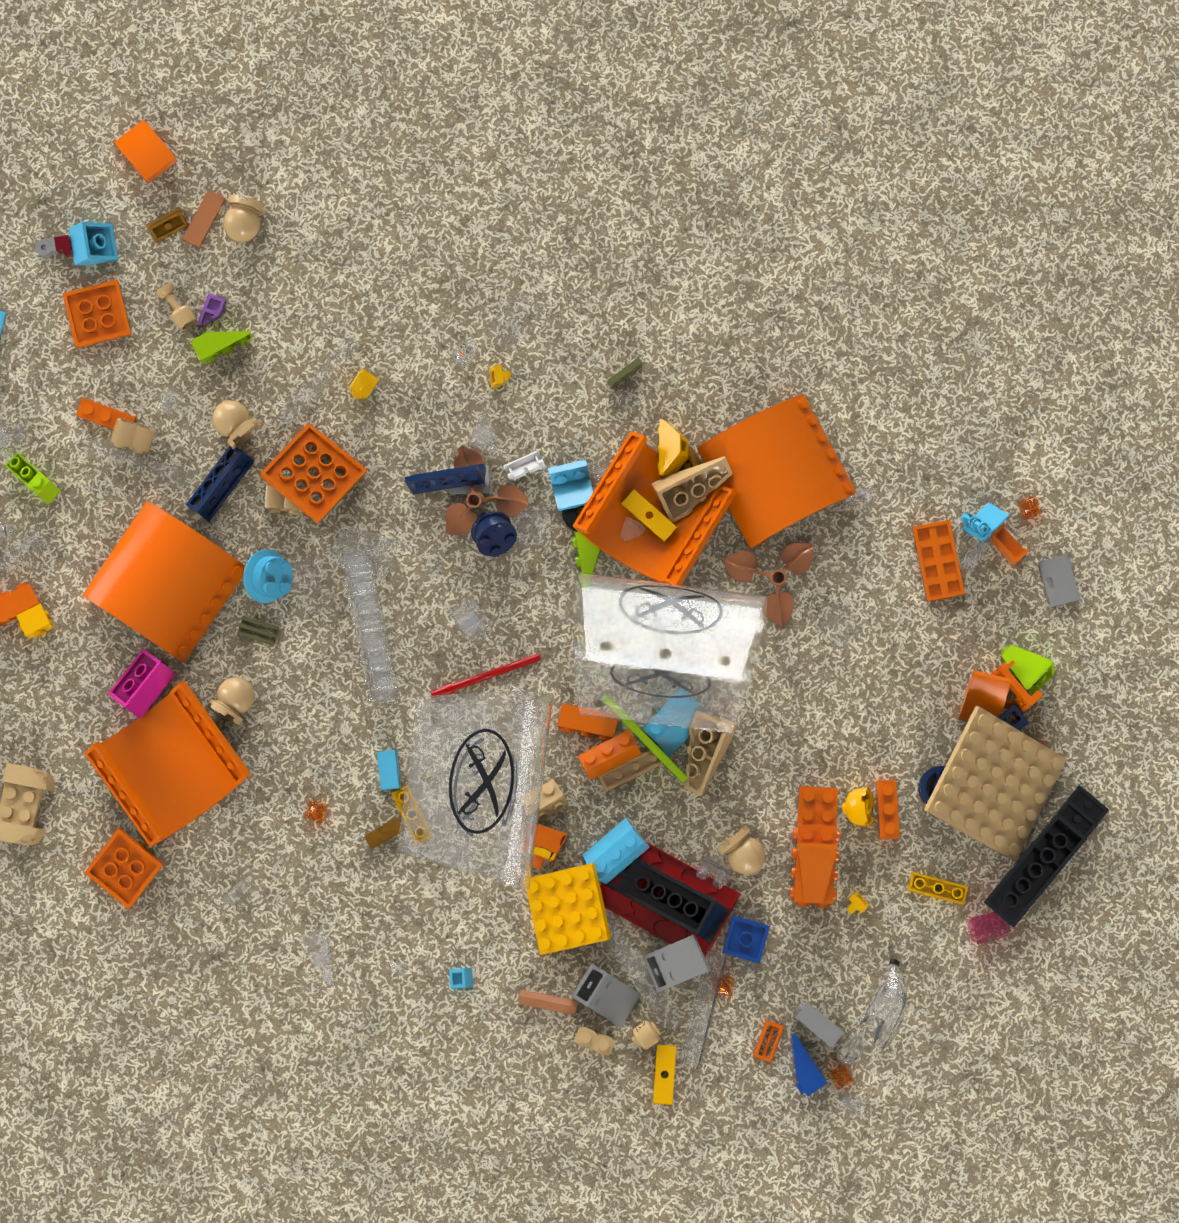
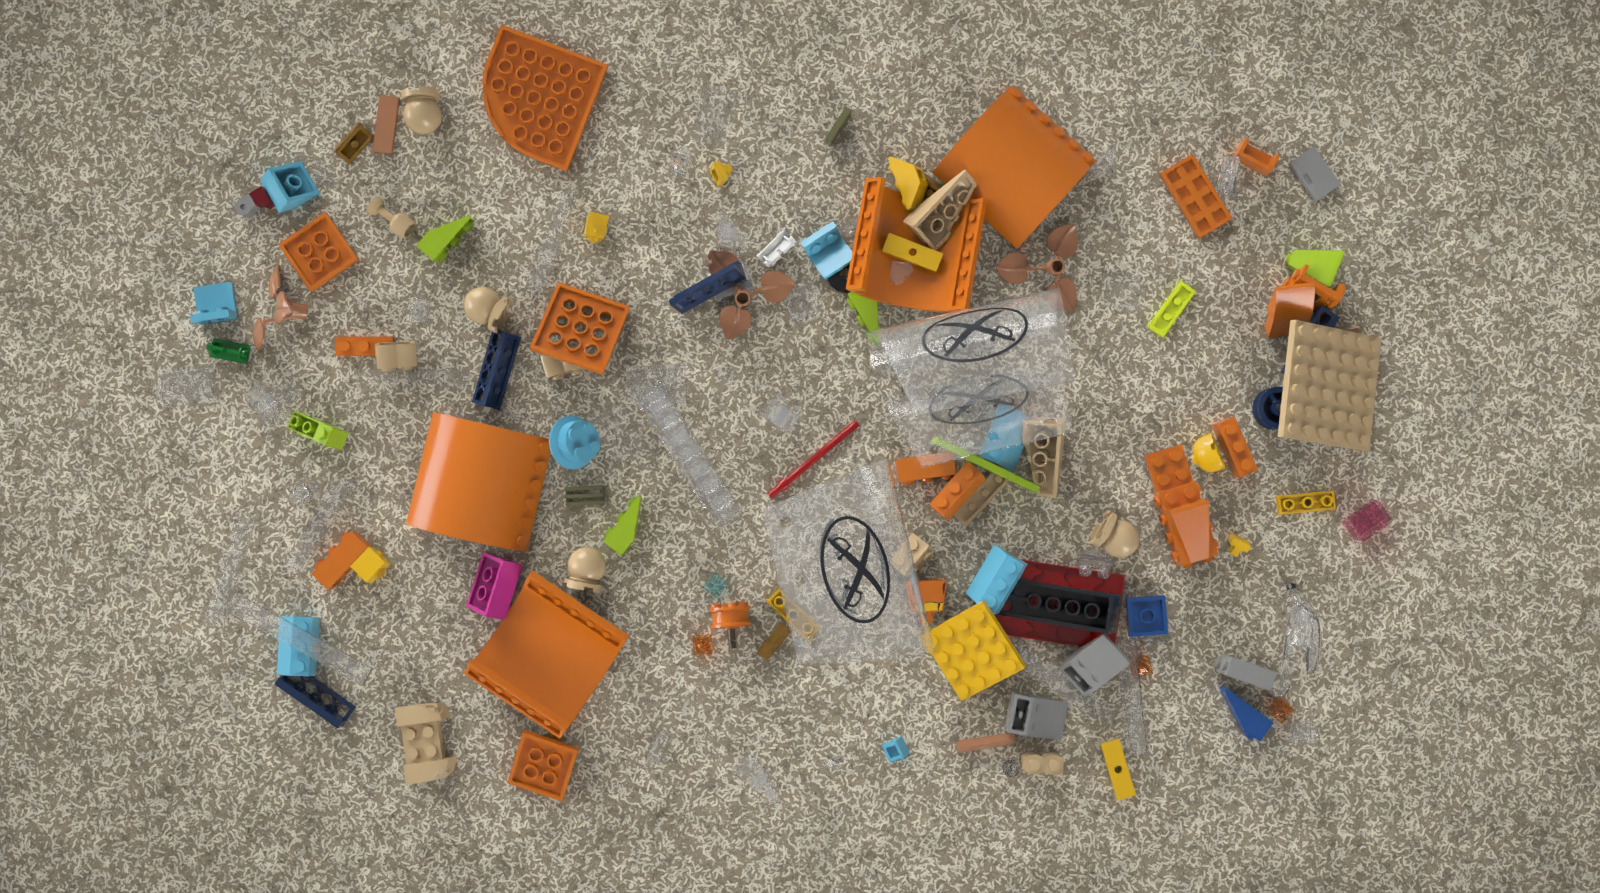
camera: 25 degrees left, 5 degrees up
(48, 358) = (283, 308): none -> nougat plant
(145, 151) = (306, 80): orange slope -> none
(211, 310) = (425, 209): medium lavender tile -> none
(282, 678) = (625, 530): none -> lime slope
(349, 759) = (715, 585): none -> clear light blue plate
(351, 794) = (730, 617): none -> orange wheel
(357, 244) = (540, 95): none -> orange plate
(389, 770) = (756, 581): medium azure tile -> none
(493, 533) = (772, 323): dark blue wheel -> none
(563, 1035) = (1010, 767): none -> clear tile
(646, 1035) = (1088, 739): tan head -> none
(762, 1057) = (1201, 702): orange tile -> none
(877, 658) = (1171, 309): none -> neon yellow tile
(984, 522) = (1227, 143): medium azure hinge -> none
(1029, 507) = (1261, 115): clear orange tile -> none
(1046, 856) = (1398, 436): black slope -> none

